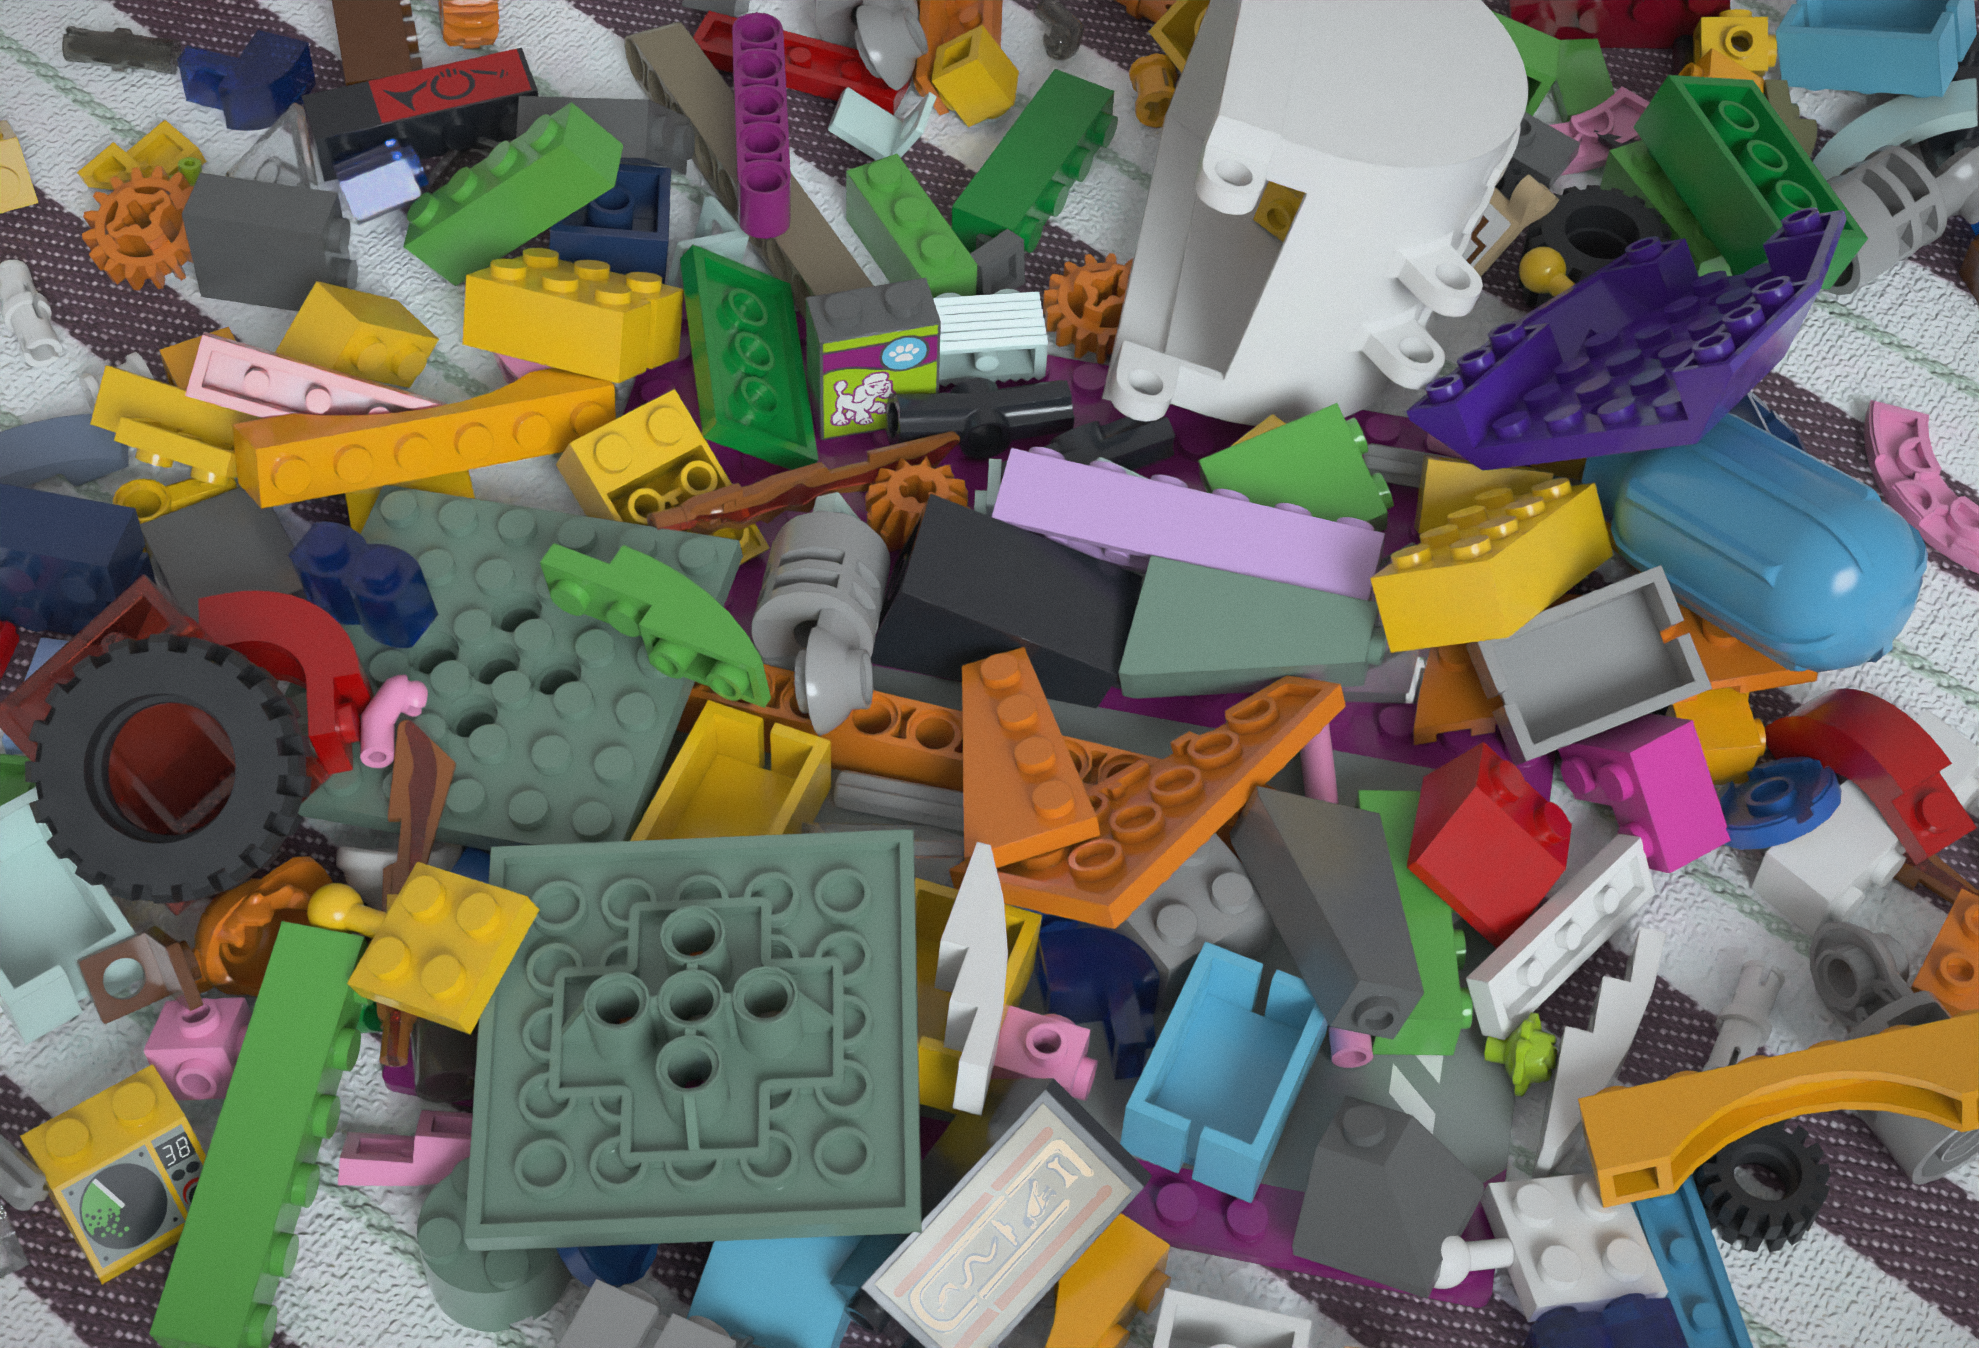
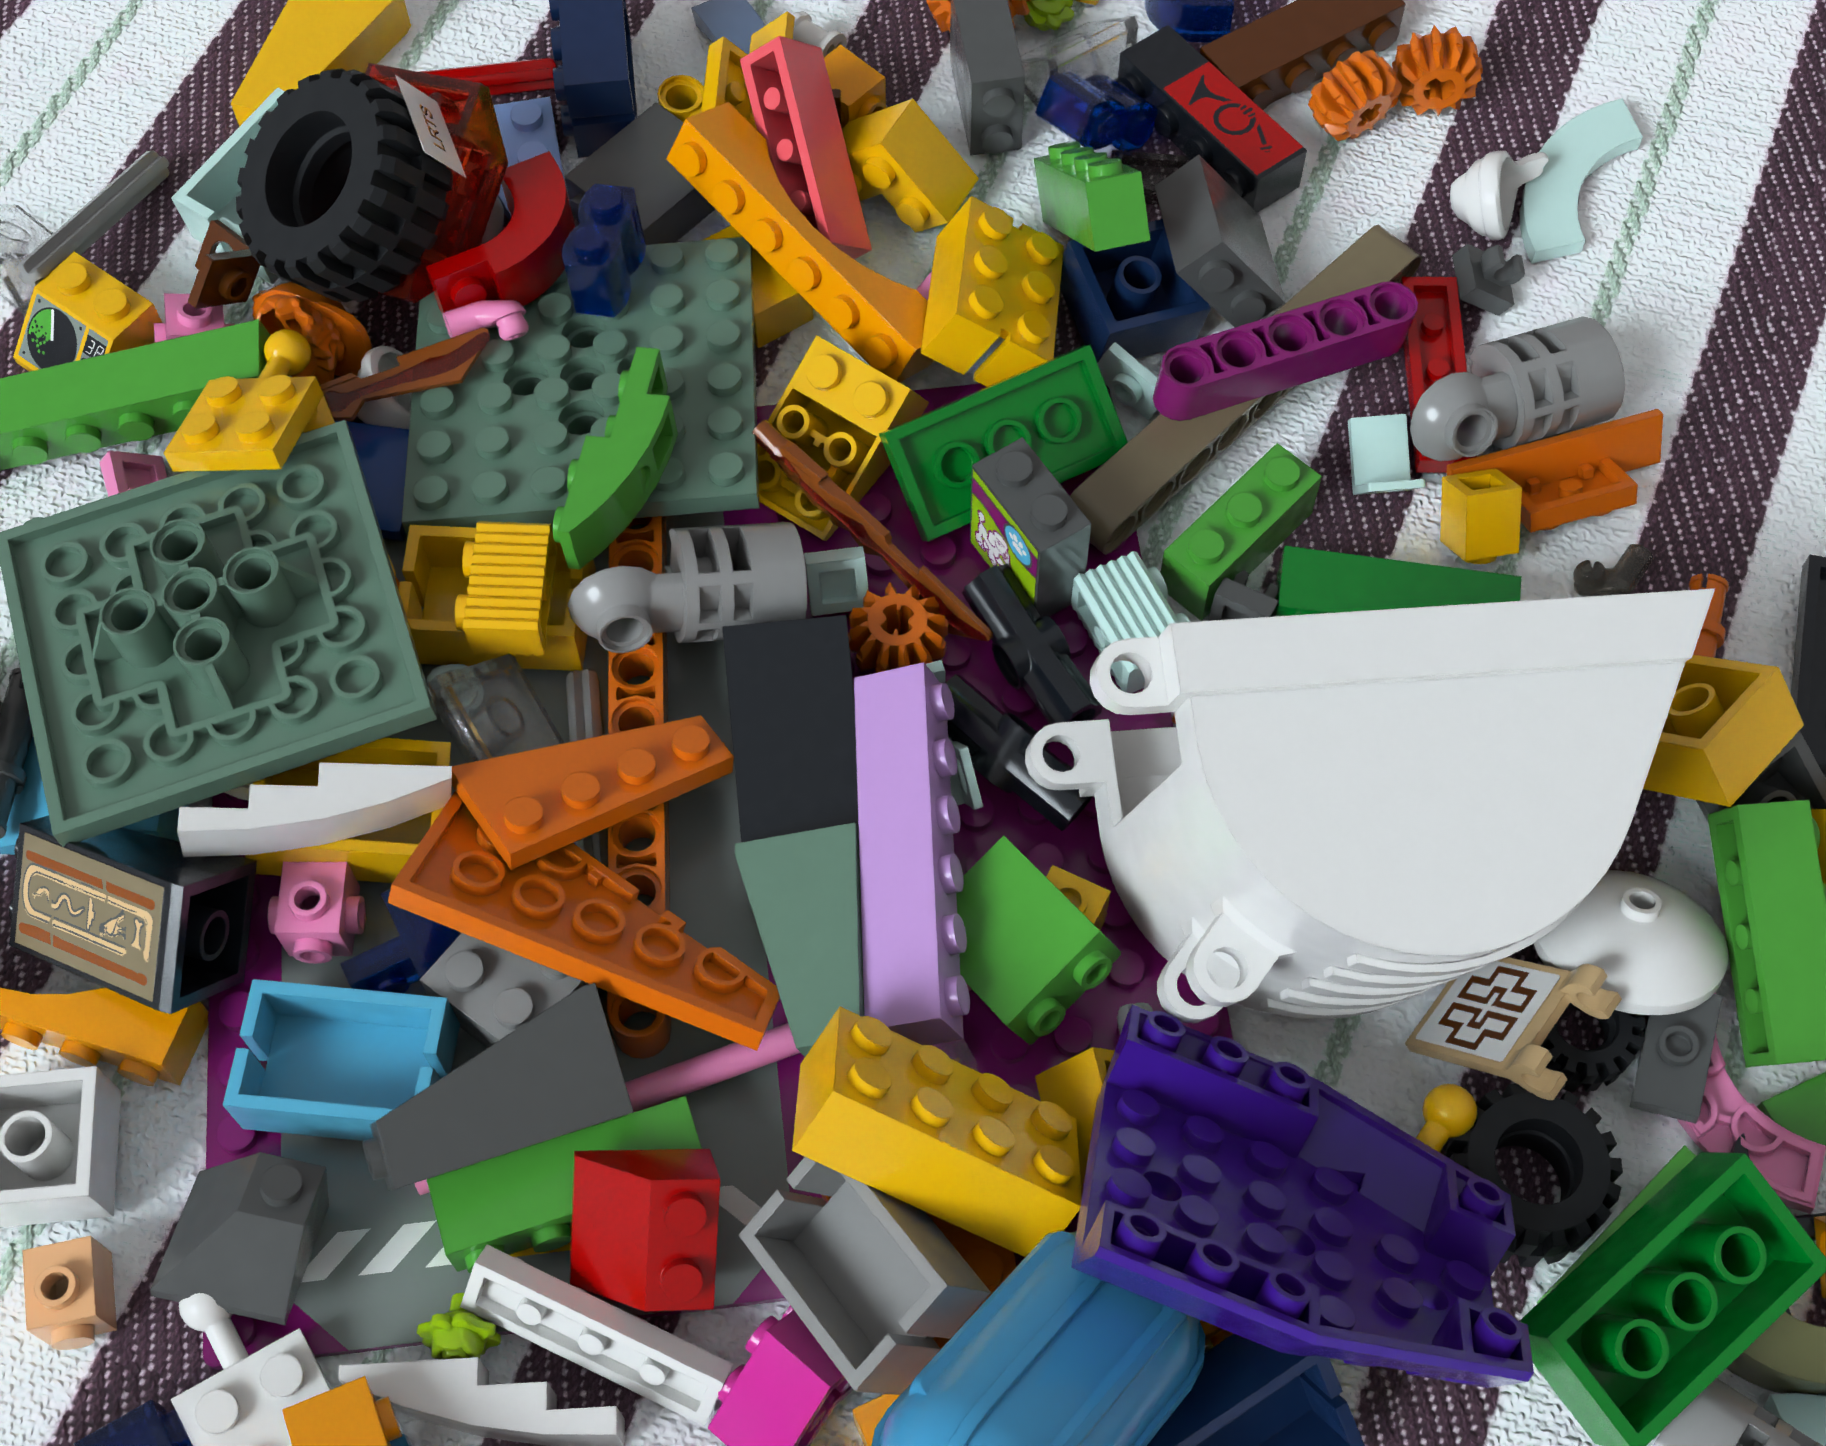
camera: 75 degrees right, 10 degrees up
(204, 635) = (430, 126): none -> white sticker
(766, 761) = (507, 588): none -> yellow brick

